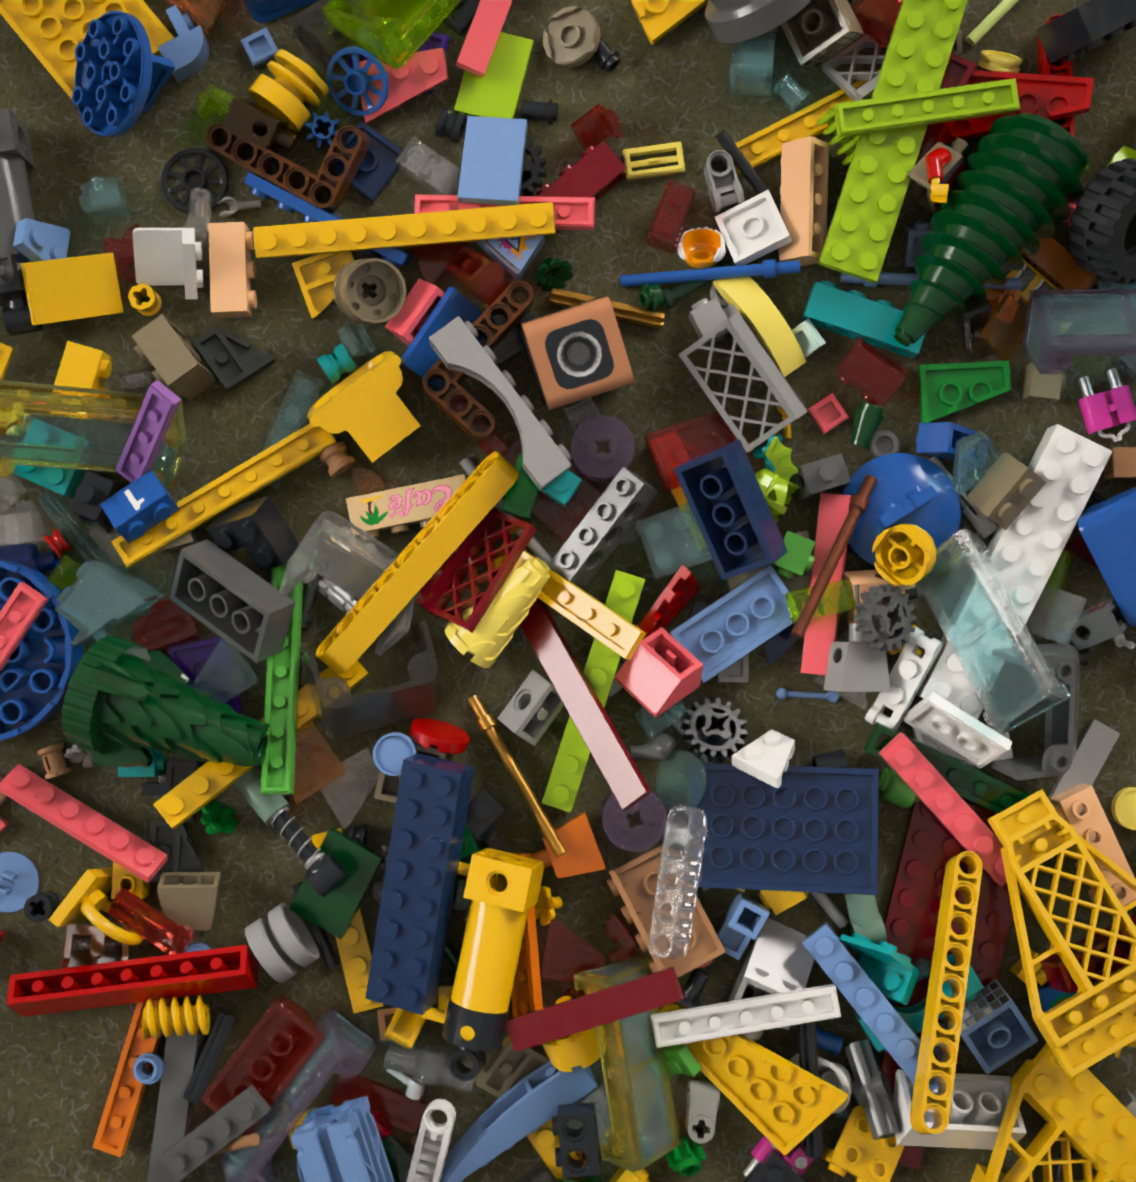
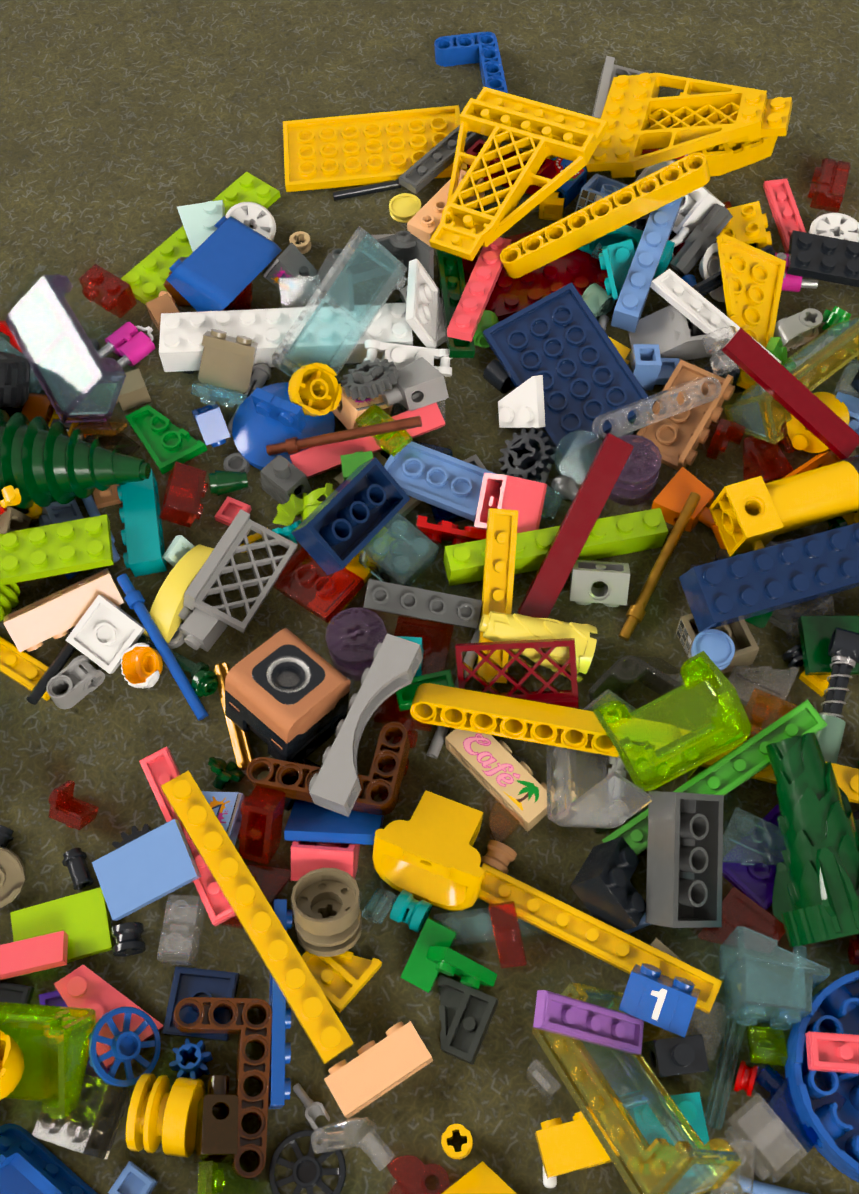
camera: 115 degrees left, 25 degrees down
(168, 258) = (400, 1134): white bracket -> none
(174, 358) = (496, 1057): dark tan brick -> none
(265, 372) = (452, 962): none -> green plate
(269, 428) = (507, 934): none -> clear red piece
(293, 358) = (420, 970): none -> green tile
(330, 652) = (677, 728): none -> clear neon green windscreen
(446, 736) = (672, 635): red tile -> none
(590, 177) = (124, 789): dark red brick -> none
(654, 172) = (93, 767): light yellow tile -> none
(671, 217) = (125, 703): clear red brick -> none
(700, 994) = (713, 344): none -> clear wheel
(782, 693) = (468, 435): medium blue hinge -> none
(890, 1069) = (680, 237): none -> white piece

